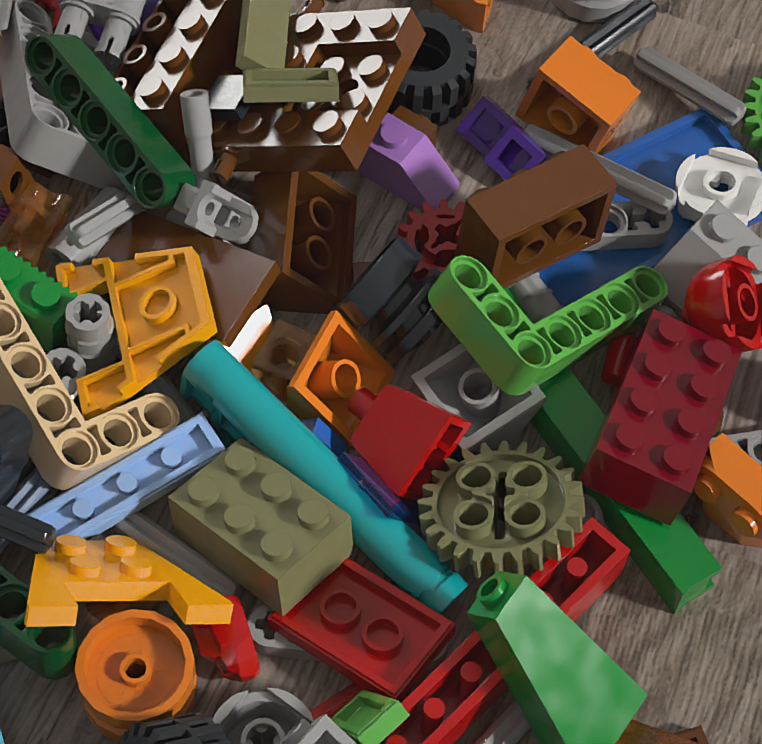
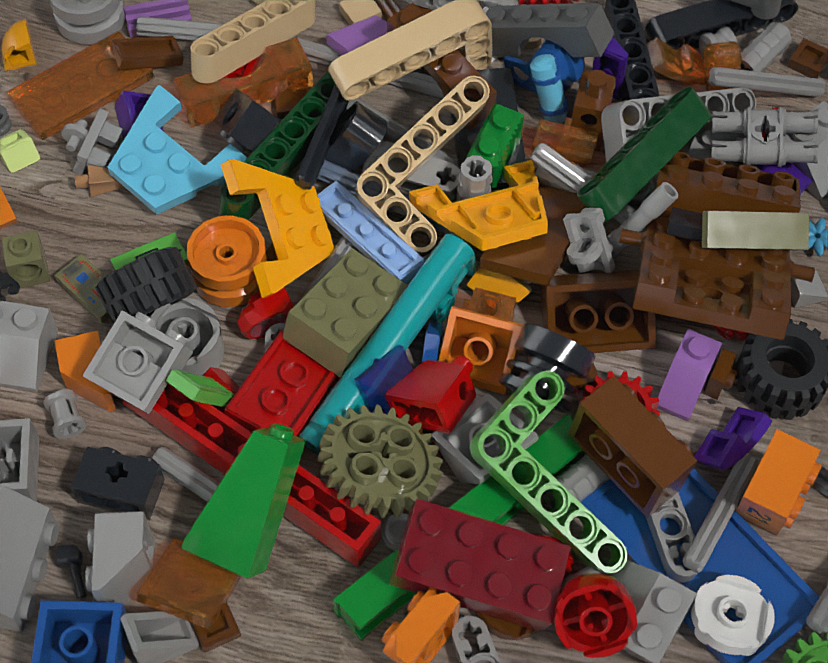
camera: 85 degrees right, 0 degrees up
(290, 85) = (693, 248): olive tile -> none

